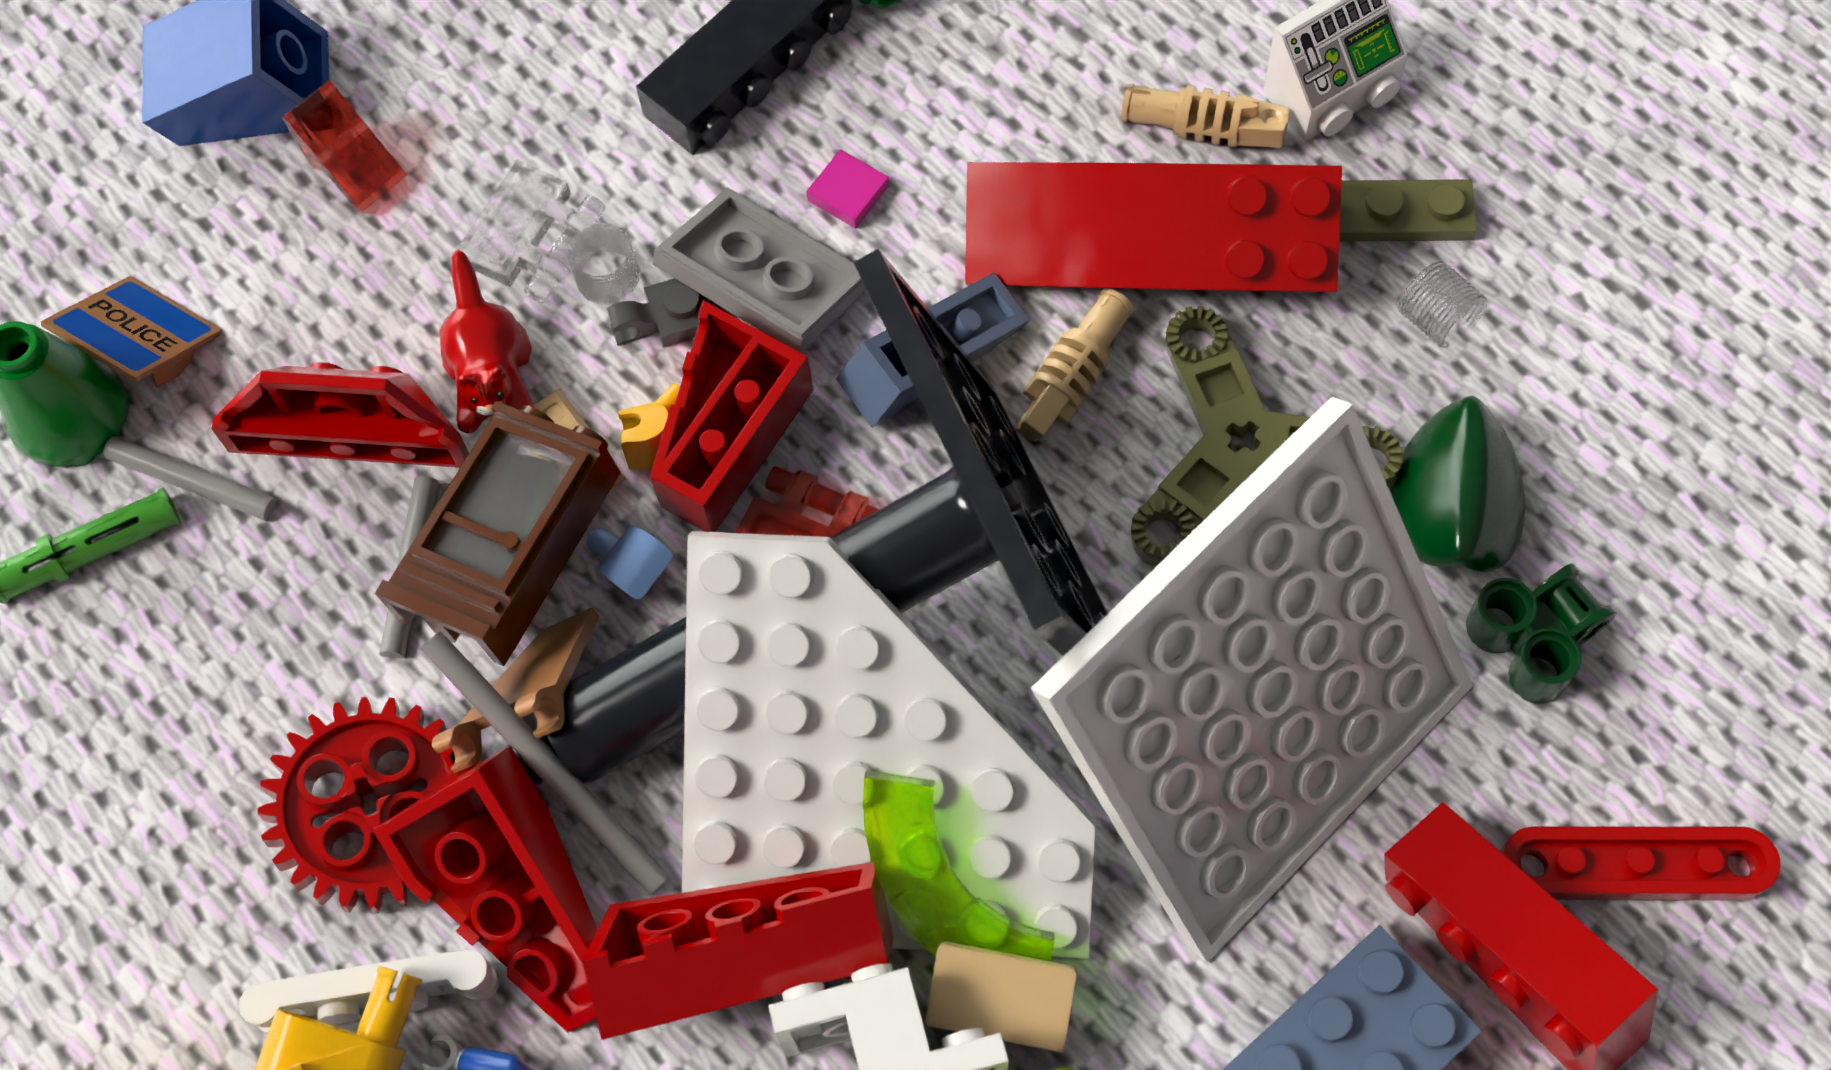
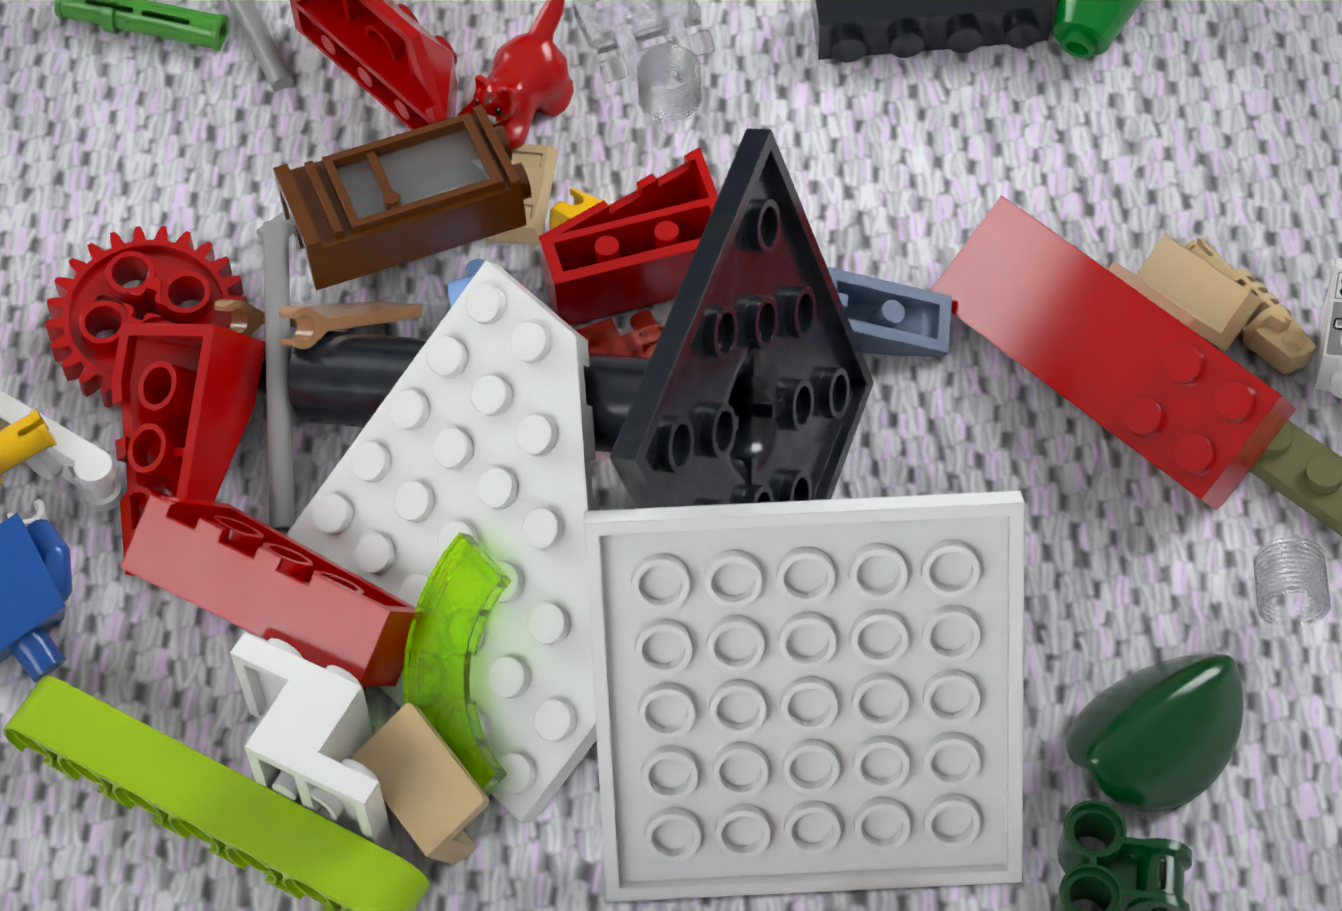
camera: 40 degrees right, 10 degrees down
(669, 311) = (658, 143): dark grey plate -> none
(761, 269) = (806, 150): light grey tile -> none
(847, 188) = (907, 162): dark pink tile -> none
(1073, 365) = (944, 408): tan hinge -> none
(1166, 132) = (1192, 291): none -> tan panel
(1223, 405) = (1056, 593): olive piece -> none

